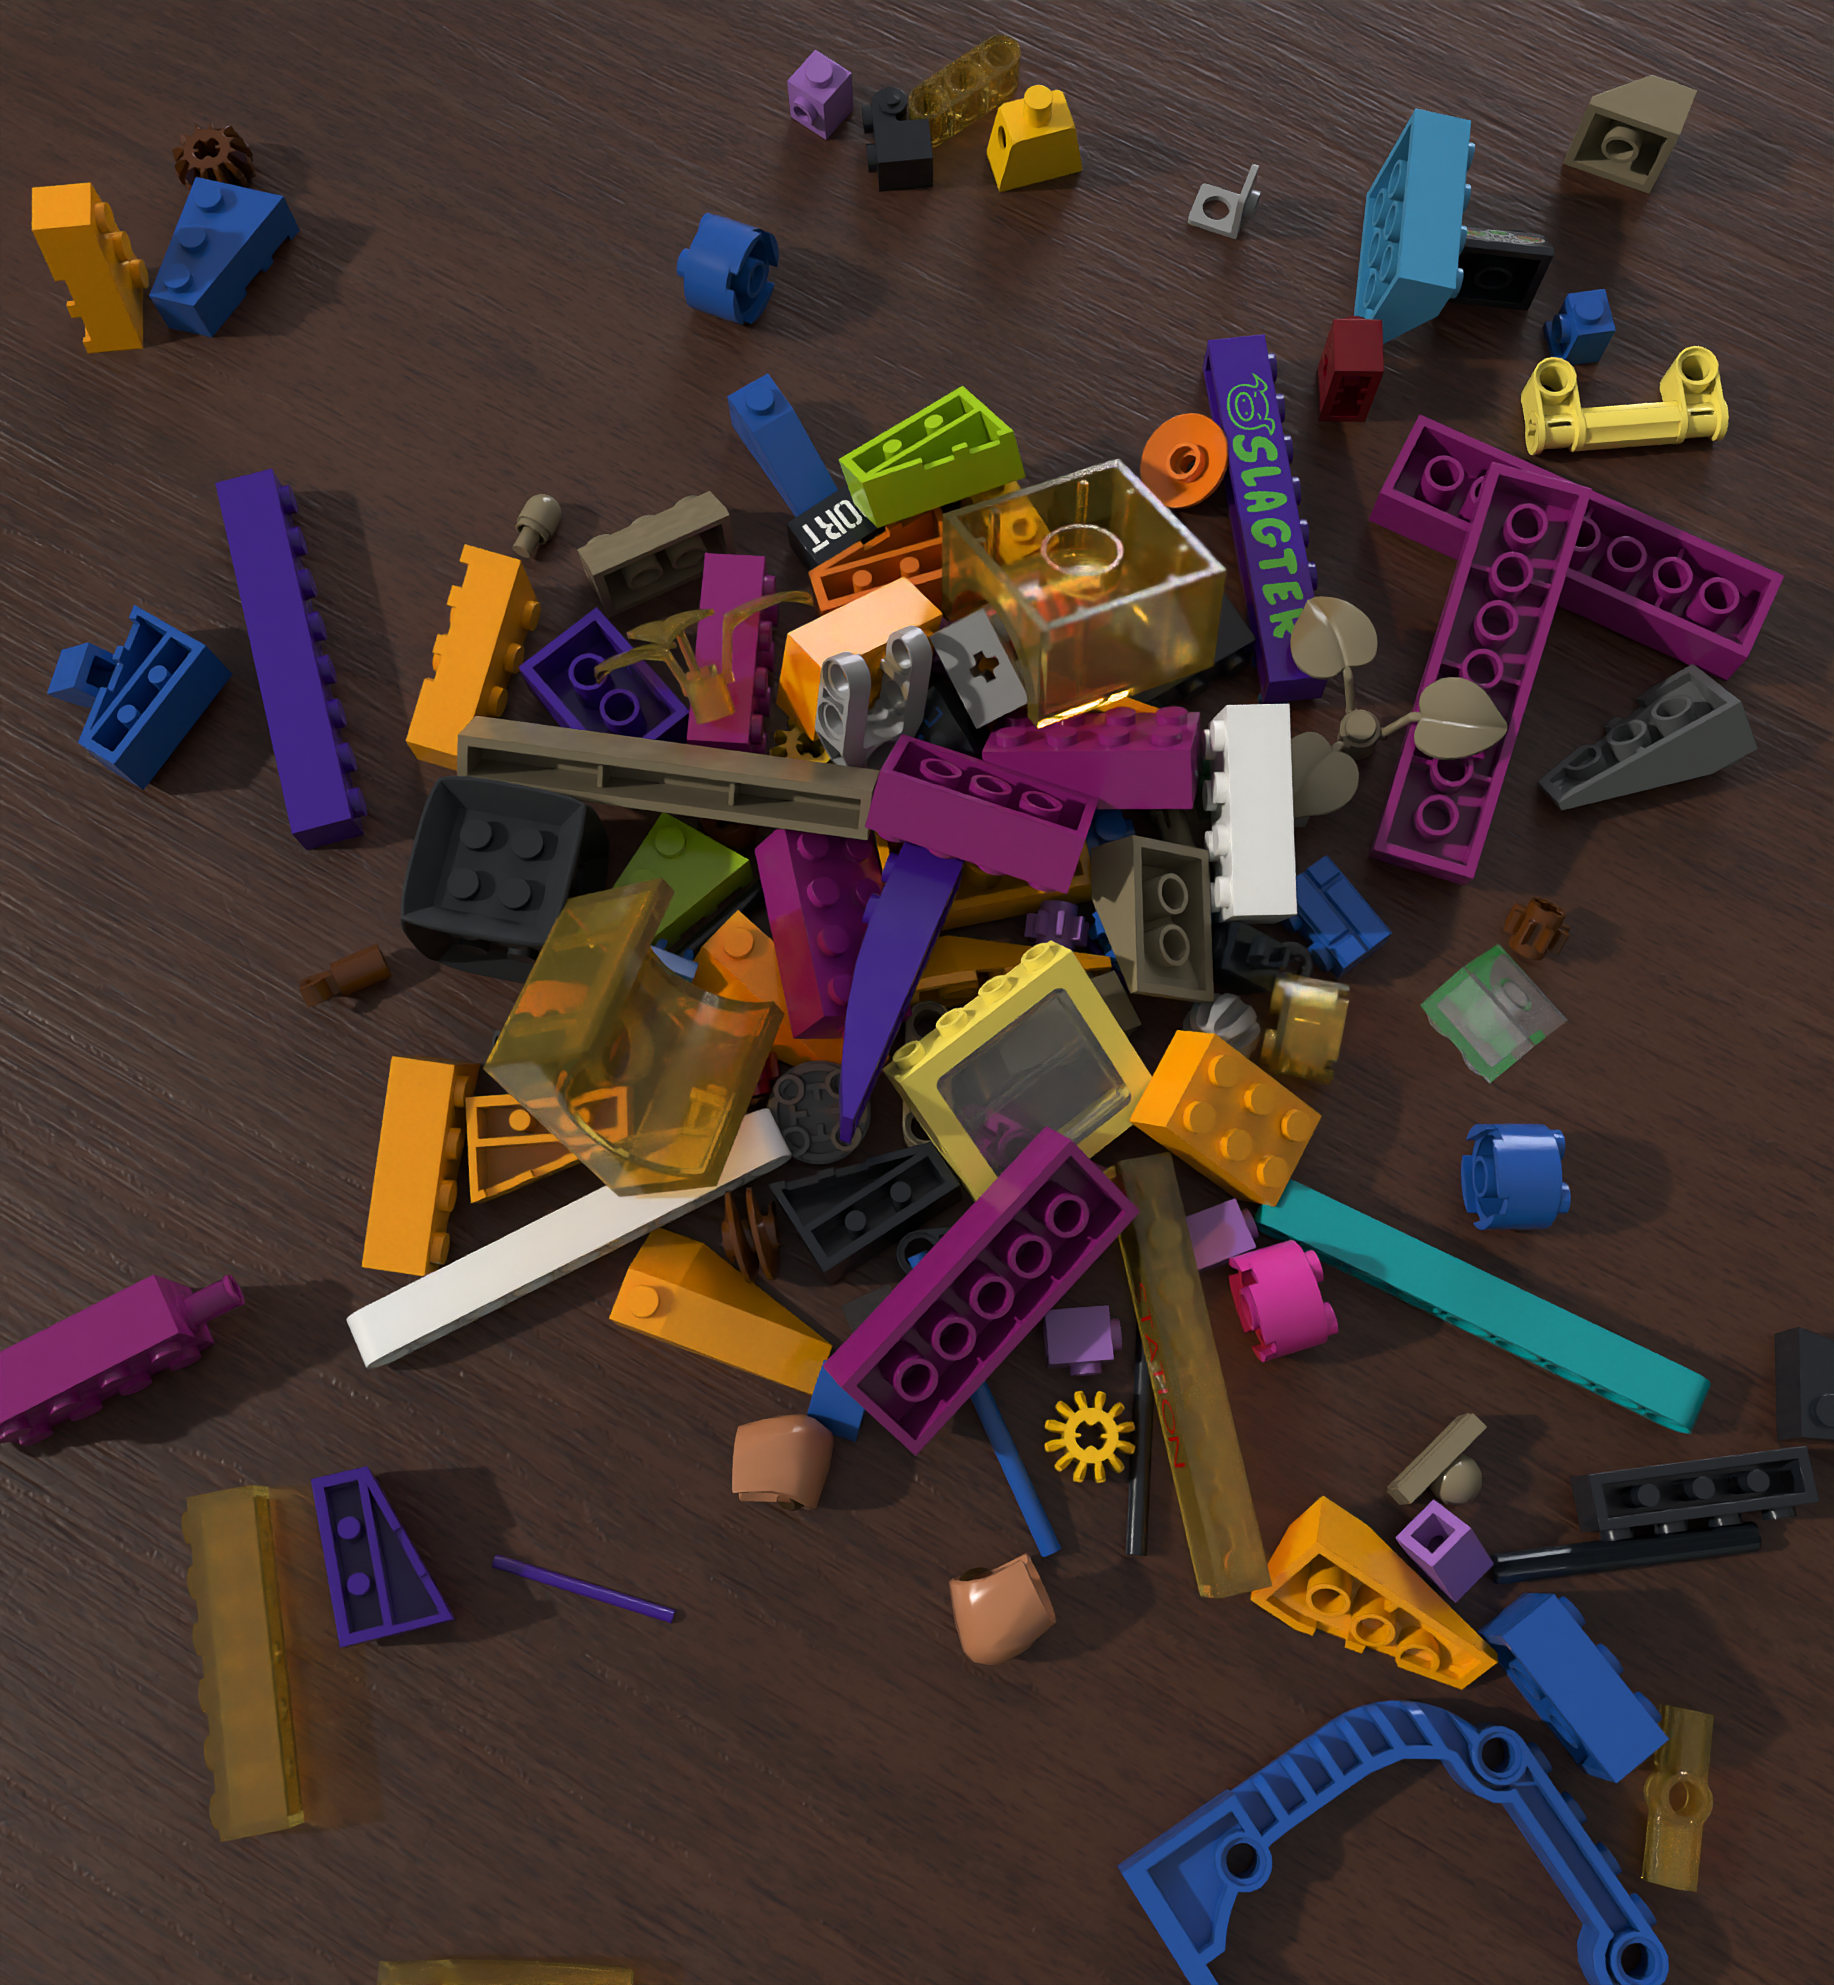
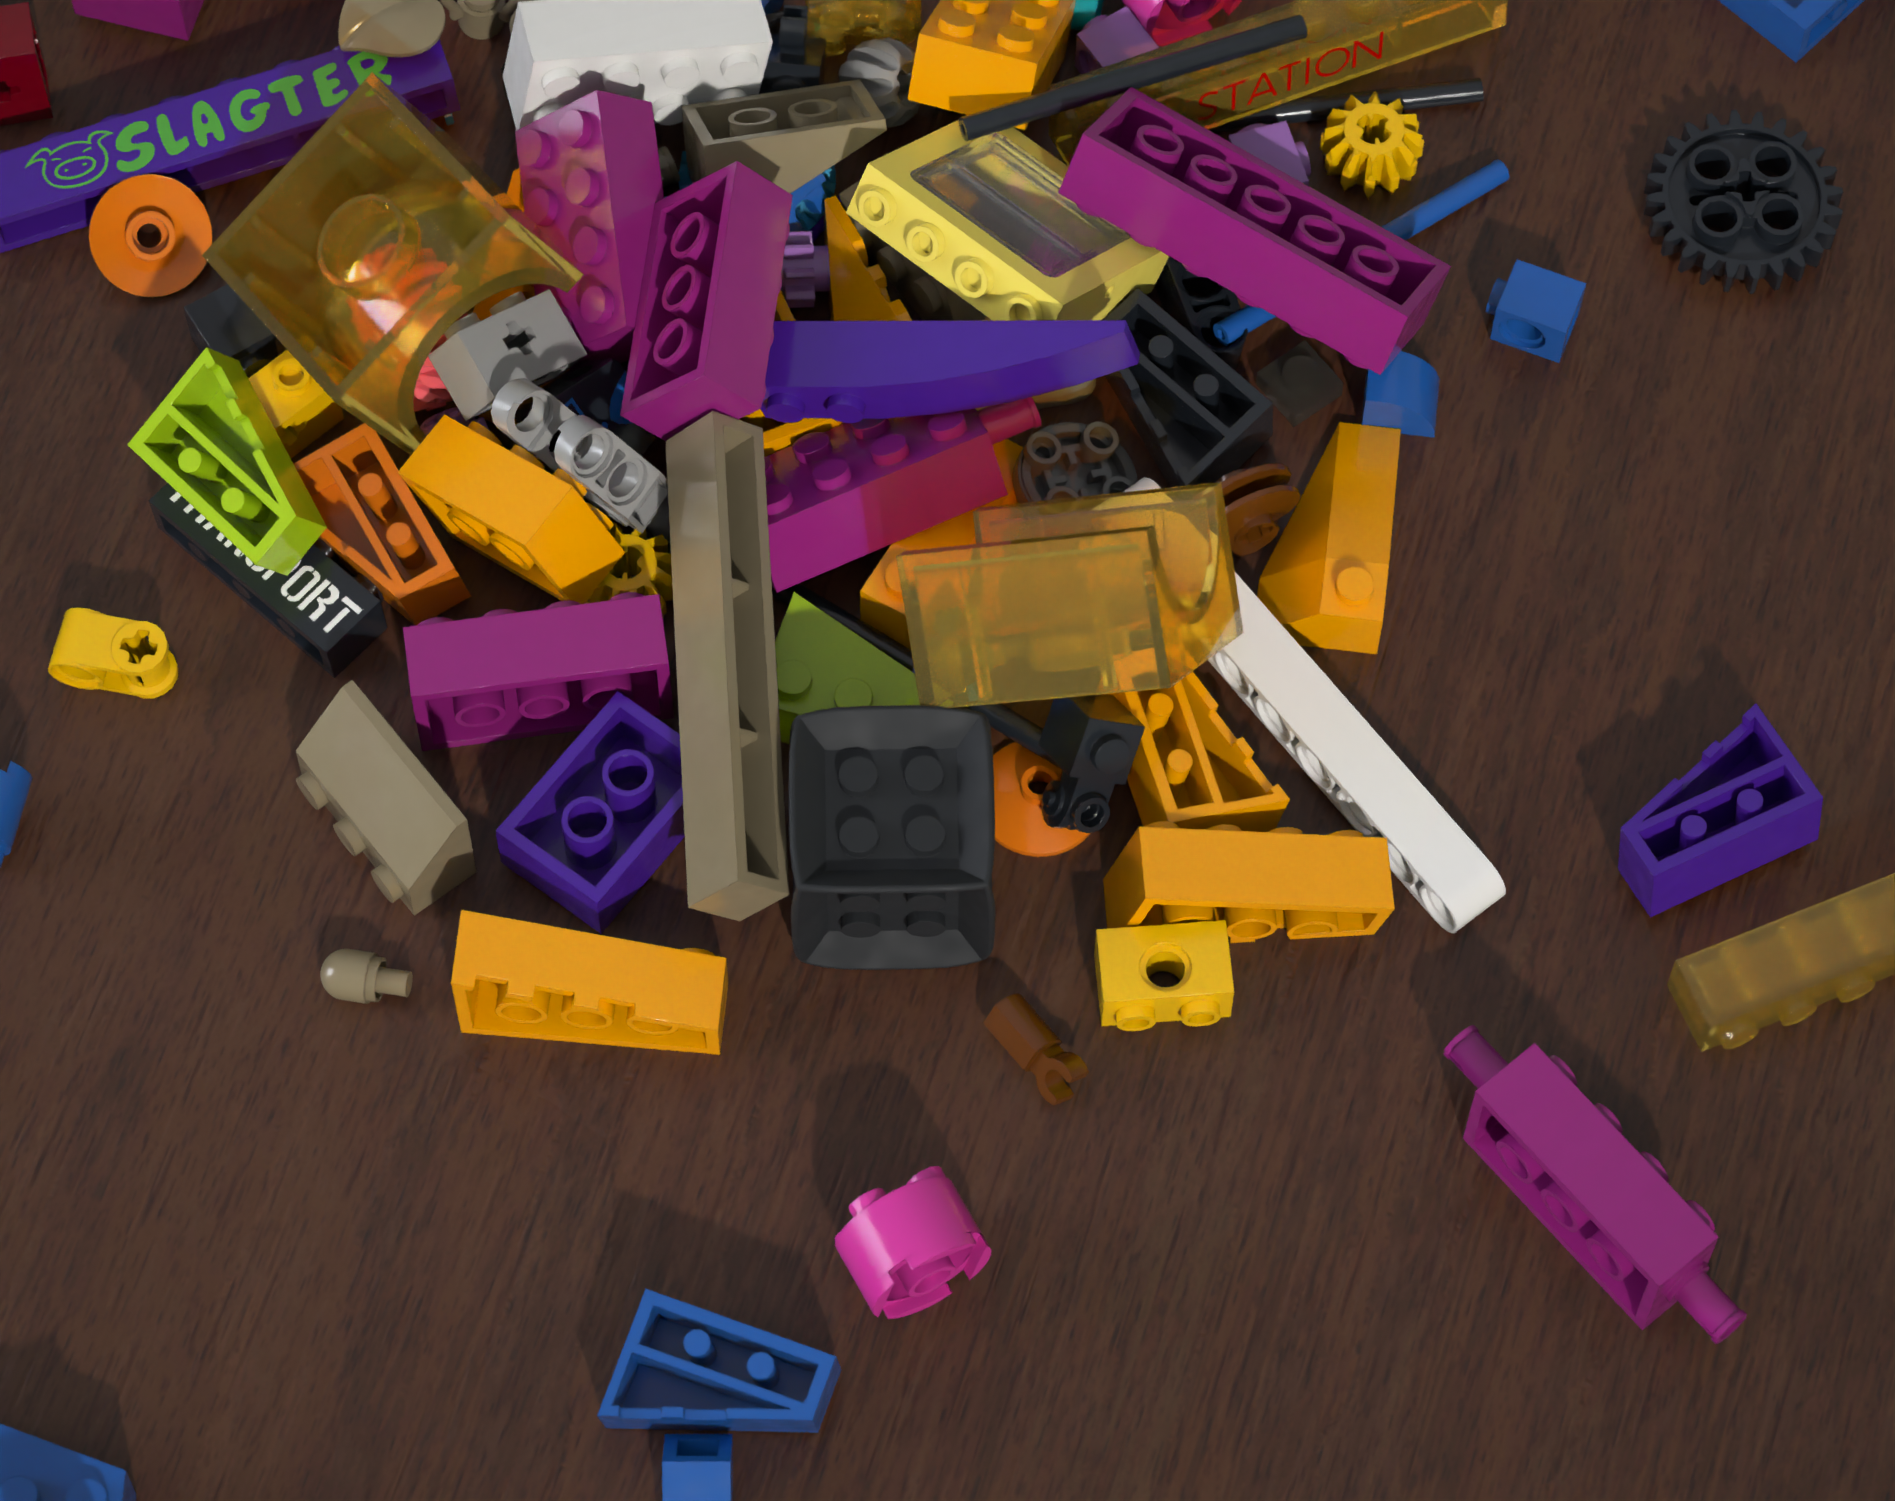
camera: 105 degrees left, 10 degrees down
(198, 843) = (911, 1244): none -> dark pink brick
(290, 660) = (615, 1228): dark purple brick -> none
(359, 1053) = (1191, 951): none -> yellow brick
(583, 1588) = (1677, 622): dark purple axle -> none
(703, 685) = (591, 603): clear yellow plant -> none
(780, 444) = (208, 696): blue slope -> none
(782, 1461) = (1486, 432): nougat piece -> none
(833, 394) = (112, 655): none -> yellow piece
(894, 1538) = (1535, 310): none -> blue brick
(1000, 1610) = (1578, 190): nougat piece -> none
(1016, 1771) = (1742, 201): none -> black gear
(1152, 1220) = (1135, 76): none -> black piece

